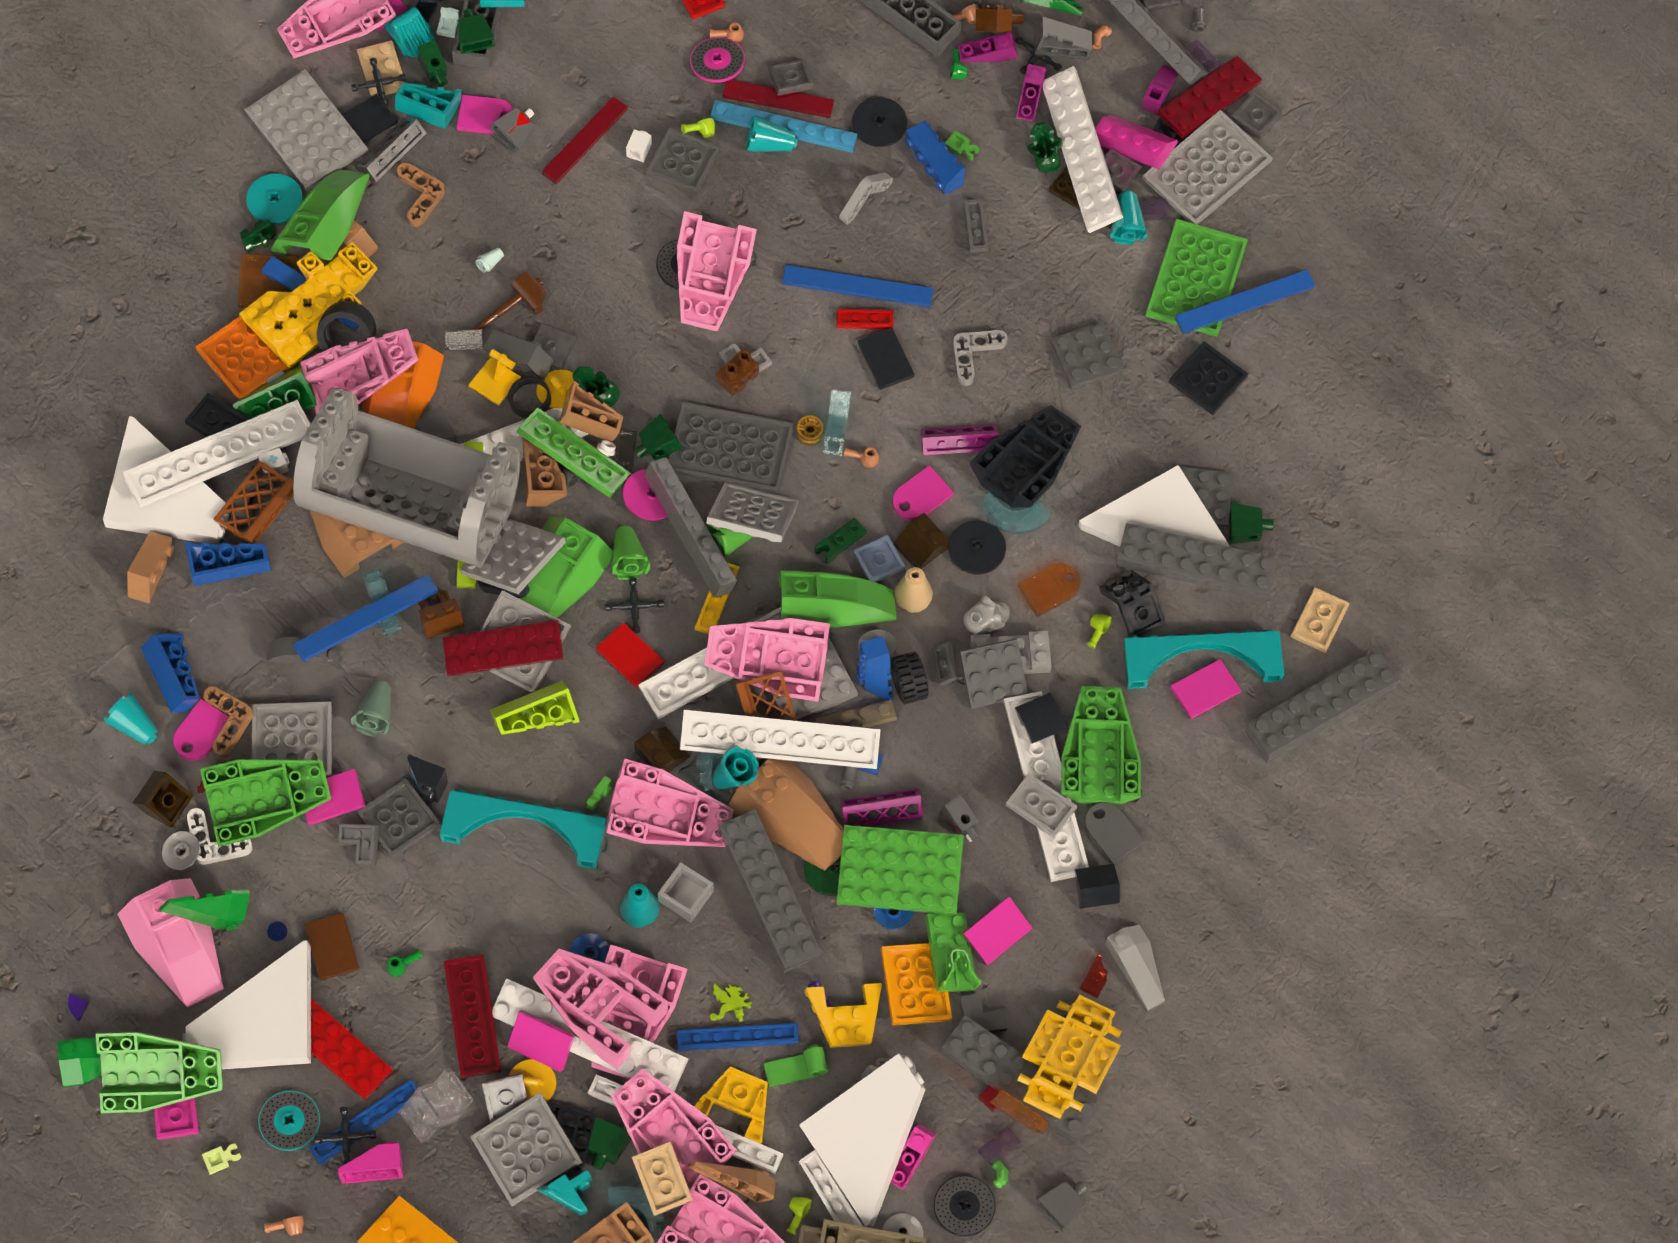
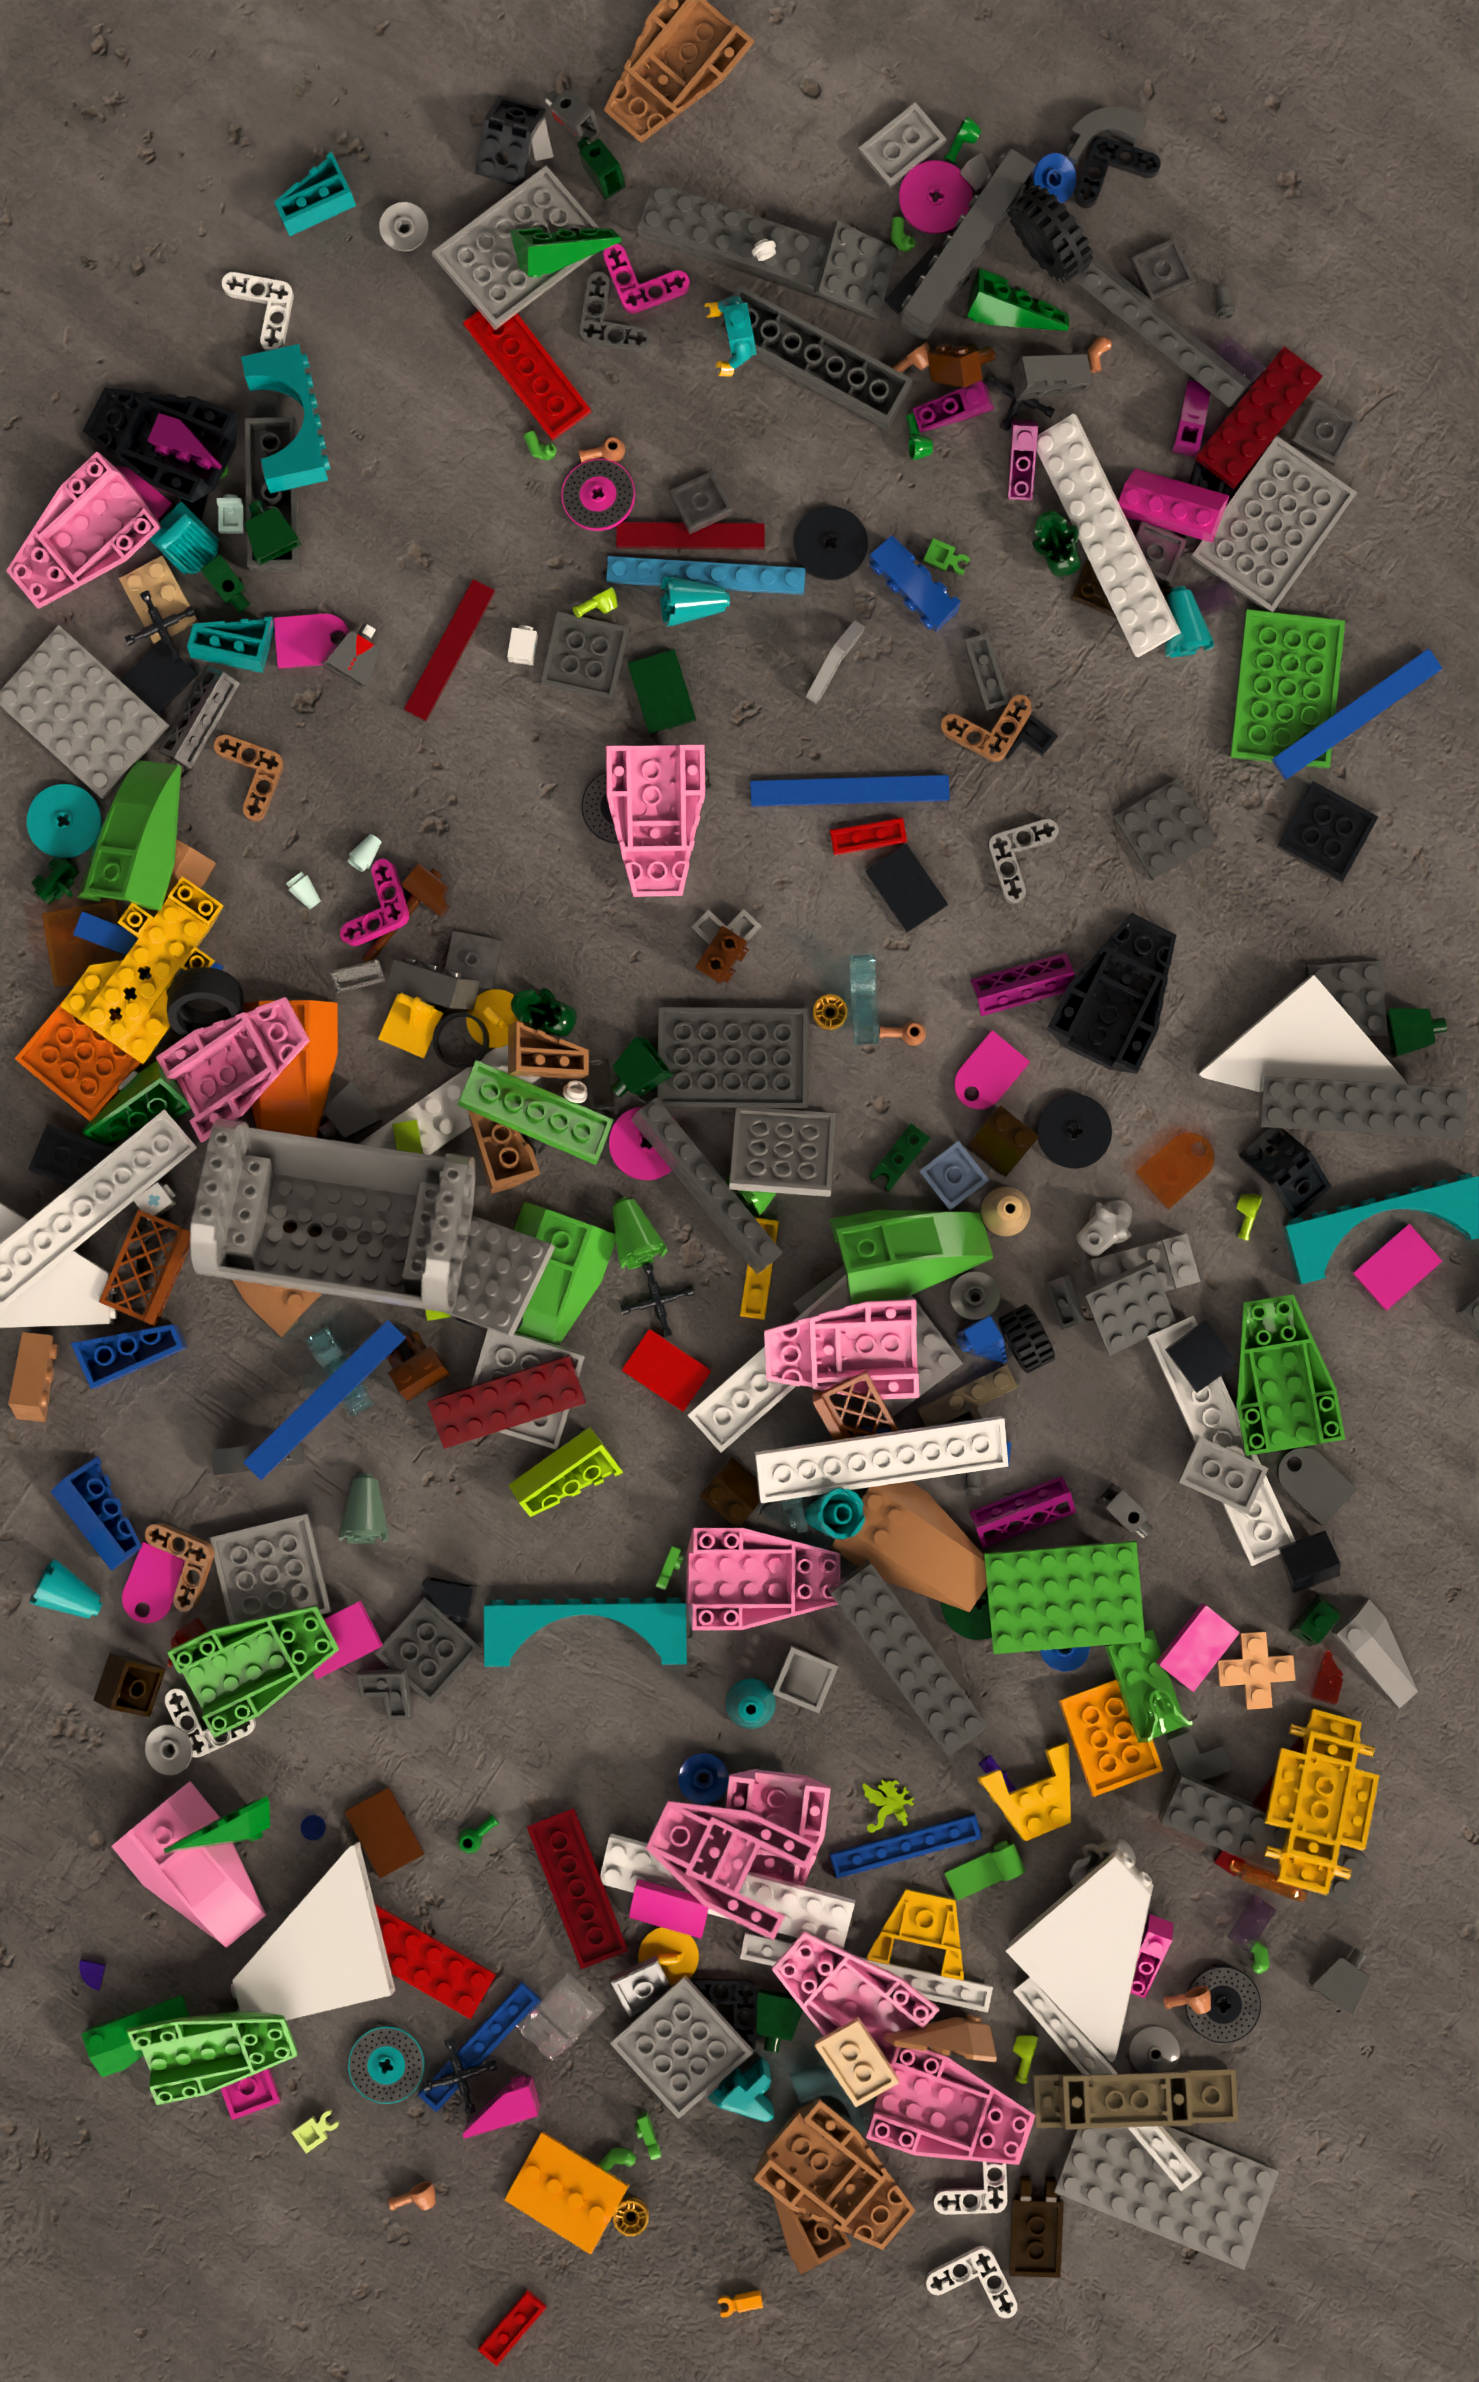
camera: 10 degrees left, 20 degrees up
(438, 275) = (303, 890): none -> light aqua cone
(456, 1226) = (617, 2156): none -> bright green arm
(482, 1208) = (645, 2129): none -> bright green plate
(494, 301) = (385, 913): none -> dark pink beam
(681, 24) = (537, 449): none -> bright green arm
(733, 195) = (661, 692): none -> dark green tile
(945, 1194) = (1197, 1998): none -> nougat bar
(969, 268) = (988, 739): none -> medium nougat beam
(996, 269) = (1033, 734): none -> black tile
(1016, 521) = (1115, 1087): clear light blue arch -> none
(1040, 959) = (1256, 1670): none -> light nougat plate
(1094, 926) = (1315, 1621): none -> dark green torso

